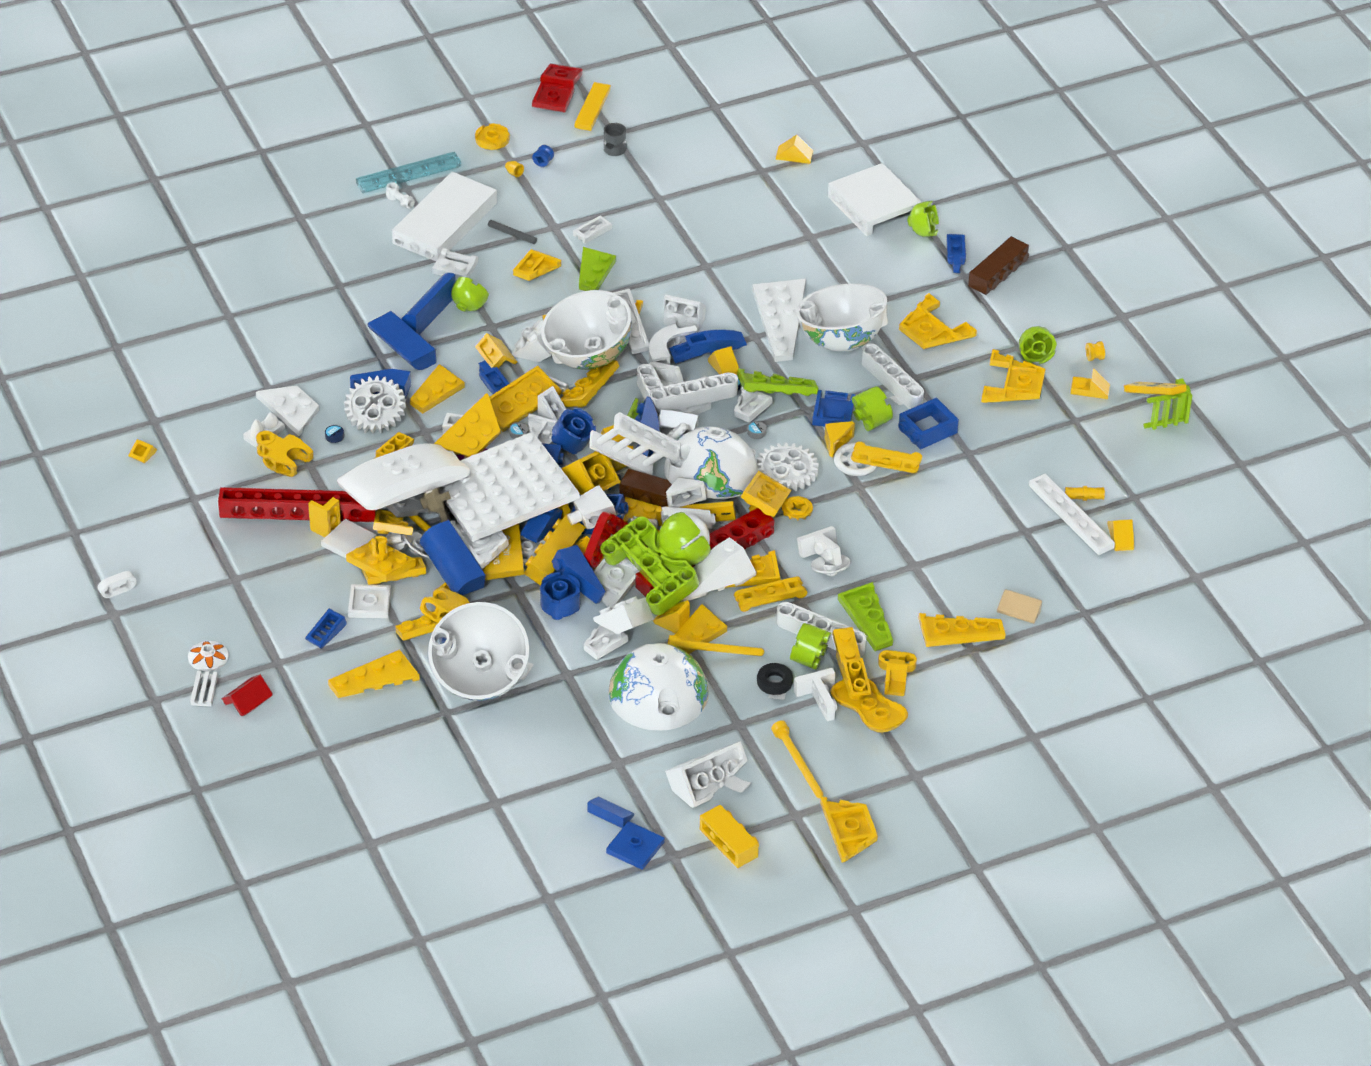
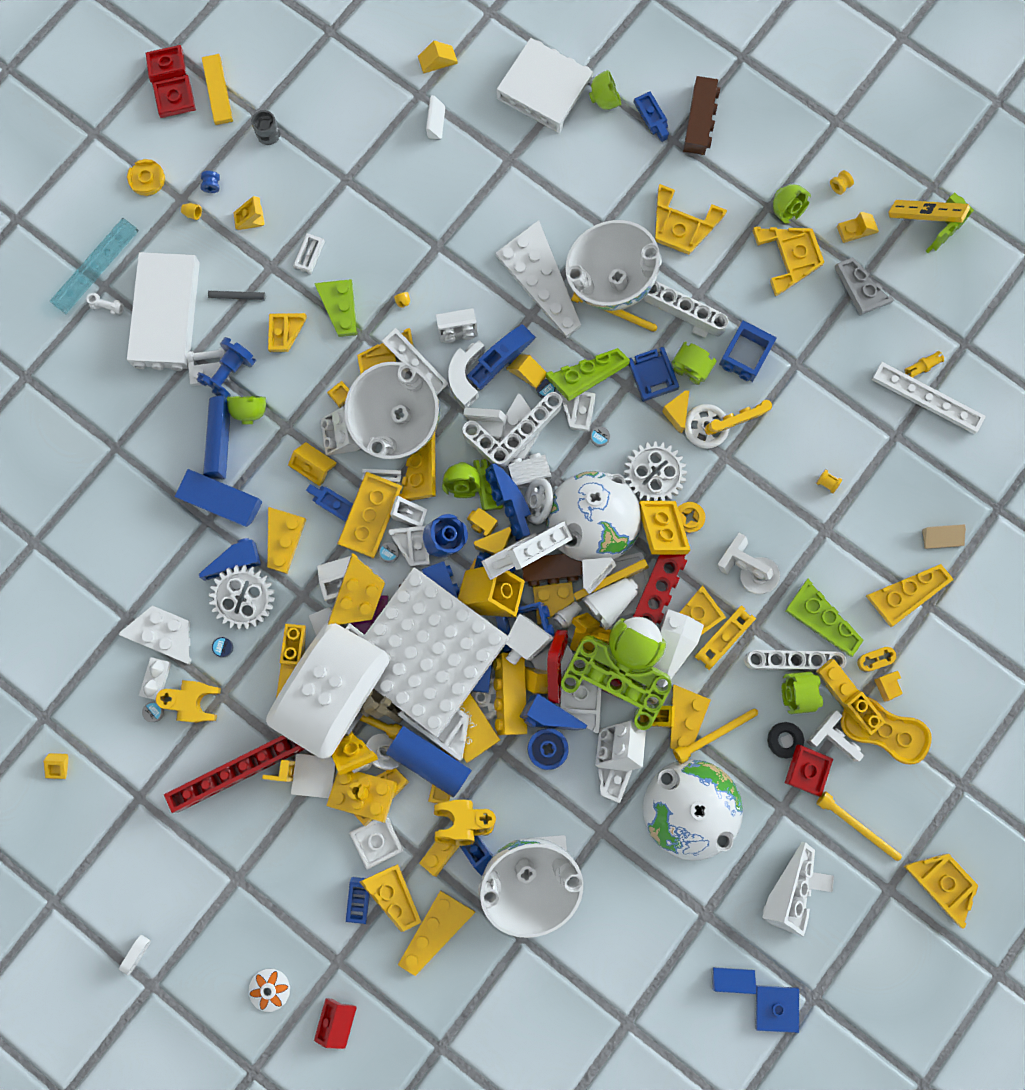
camera: 25 degrees left, 35 degrees up
(205, 677) = (279, 1030): white tile -> none
(246, 450) = (152, 712): none -> tile
(357, 633) = (393, 897): none -> yellow wing
(482, 260) = (230, 362): none -> blue piece
(561, 186) = (249, 214): none -> yellow slope
(611, 402) = (461, 480): none -> lime cylinder
(650, 283) = (402, 299): none -> yellow hinge
(729, 836) = (854, 956): yellow brick -> none
(763, 186) = (435, 118): none -> white slope
(780, 701) = (808, 770): none -> red plate
(803, 338) = (625, 315): none -> yellow piece
(939, 531) = (829, 481): none -> yellow bush
(1063, 425) = (861, 289): none -> light grey wing
(1122, 534) = (980, 396): yellow slope -> none

